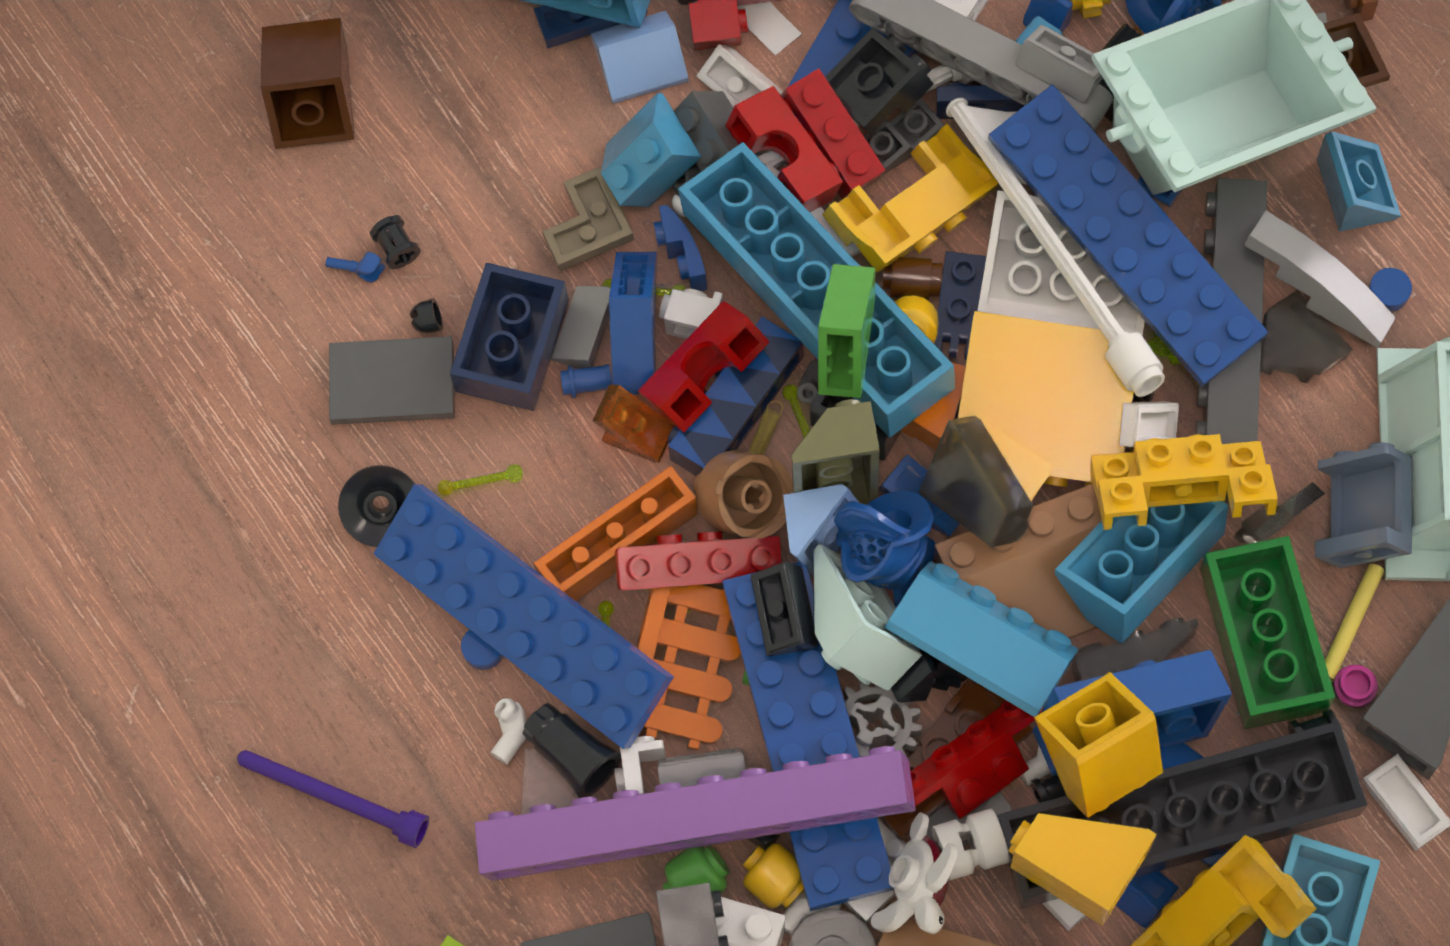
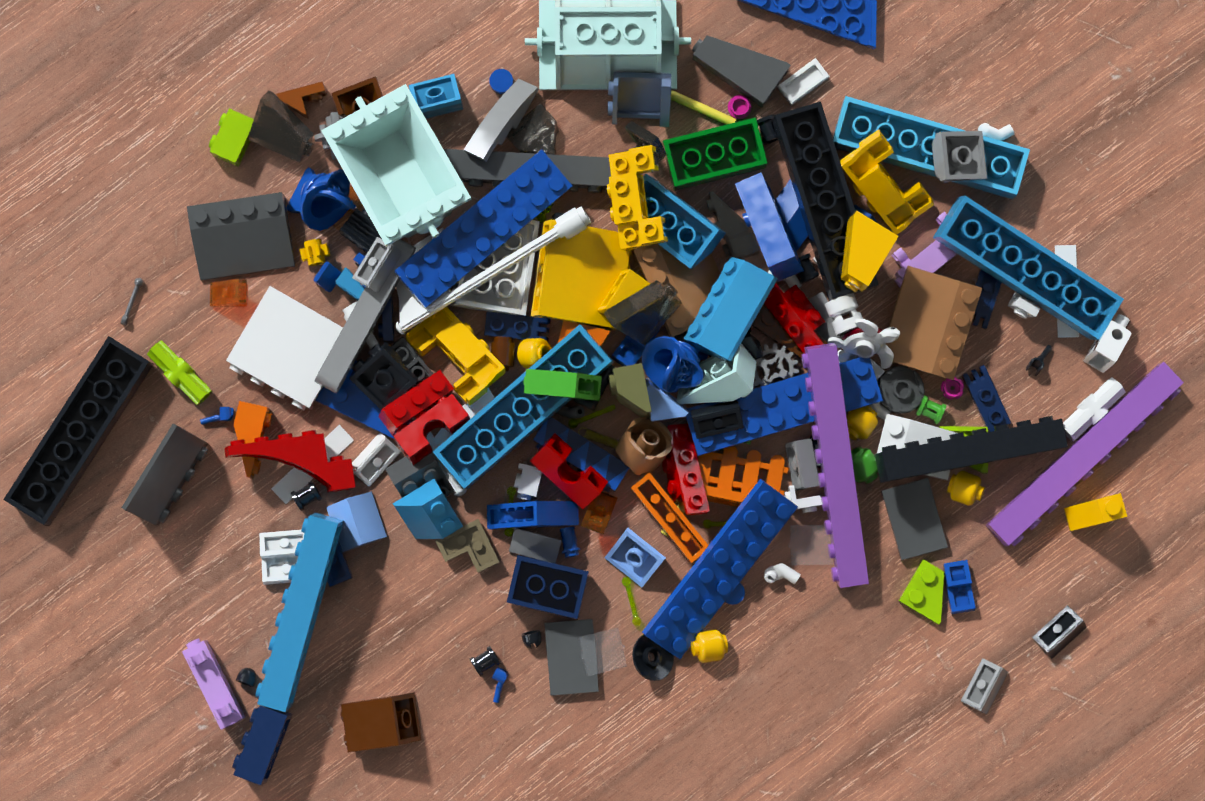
camera: 100 degrees left, 15 degrees up
(391, 601) = (709, 646): none -> yellow head
(396, 426) = (602, 651): none -> clear piece
(407, 826) = (838, 628): dark purple piece -> none
(556, 485) = (634, 557): none -> light blue slope
(571, 750) = (794, 538): black plant -> none
(680, 245) = (479, 494): blue slope -> none
(1101, 743) = (802, 241): yellow slope -> none
(1148, 421) = (599, 220): white tile -> none

